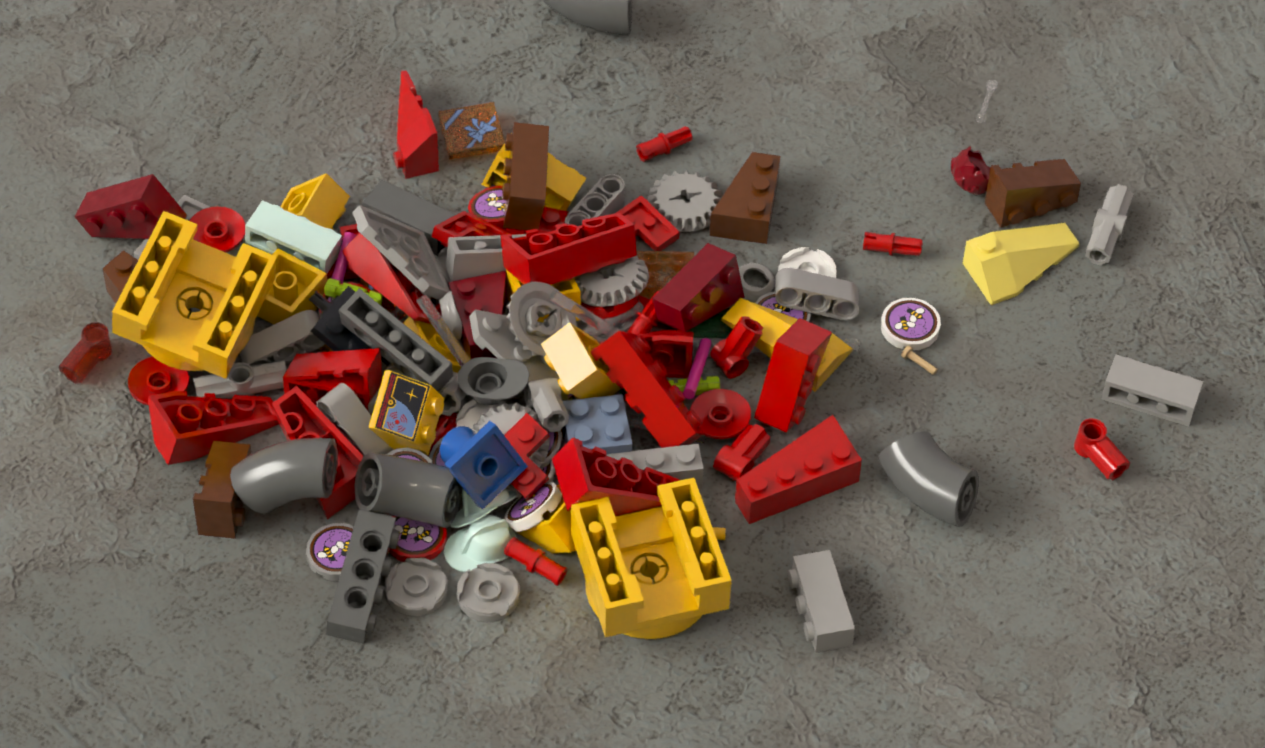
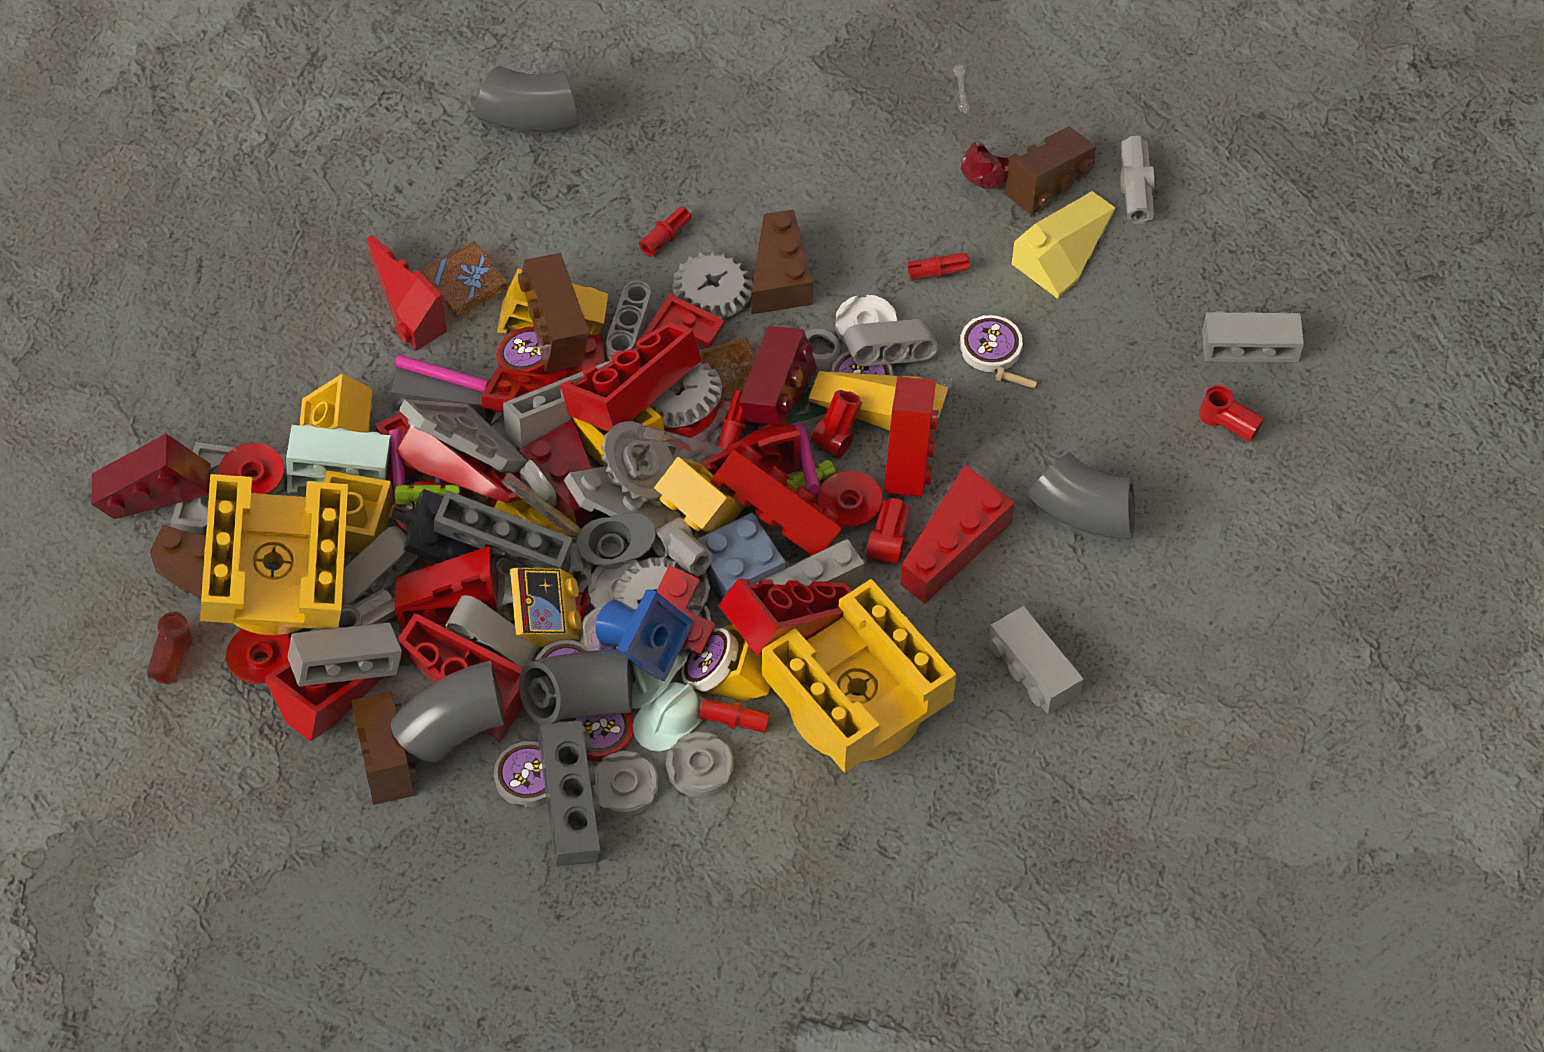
camera: 20 degrees left, 5 degrees up
(223, 400) = (344, 654): none -> light grey brick
(410, 199) = (441, 373): none -> dark pink bar

